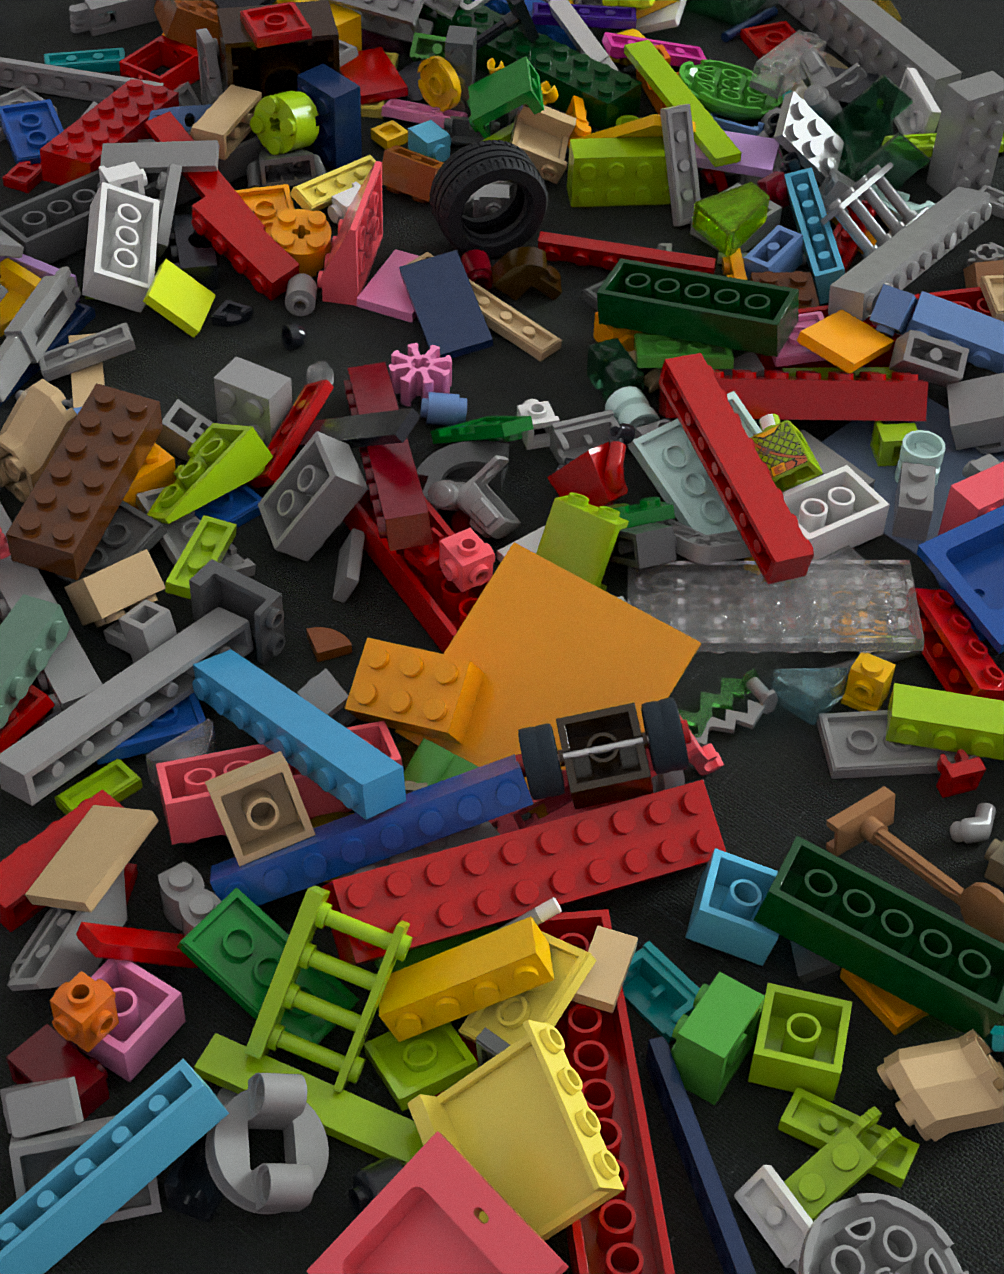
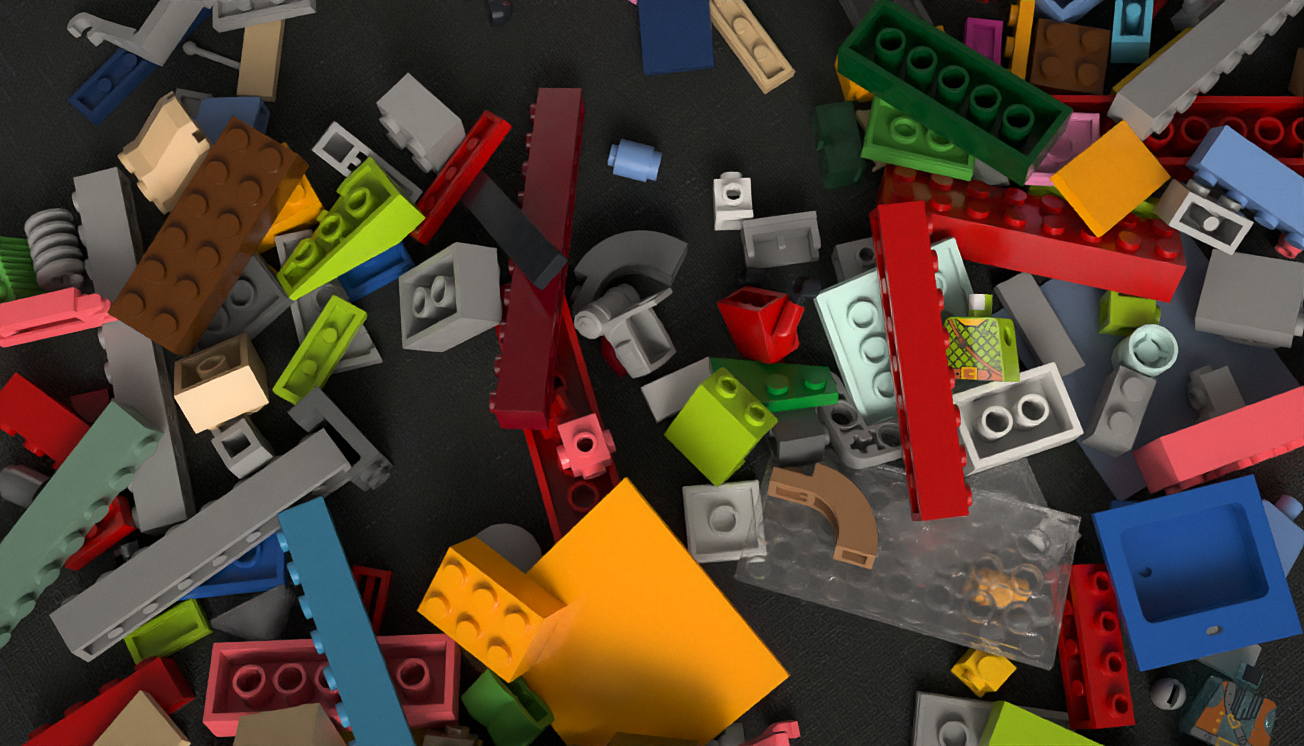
camera: 15 degrees right, 30 degrees up
(319, 372) = (511, 84): clear plate -> none
(328, 643) = (433, 480): dark orange tile -> none
(328, 696) = (409, 574): light grey brick -> none
(349, 565) = (477, 381): light grey tile -> none
(419, 374) = (605, 94): bright pink gear -> none
(488, 427) = (667, 214): green wing -> none
(631, 407) = (838, 211): light aqua wheel -> none
(695, 575) = (839, 503): none -> medium nougat arch
(729, 688) = (835, 635): piece -> none
(809, 690) = (917, 665): clear light blue slope -> none
(893, 310) = (1182, 140): medium blue brick -> none

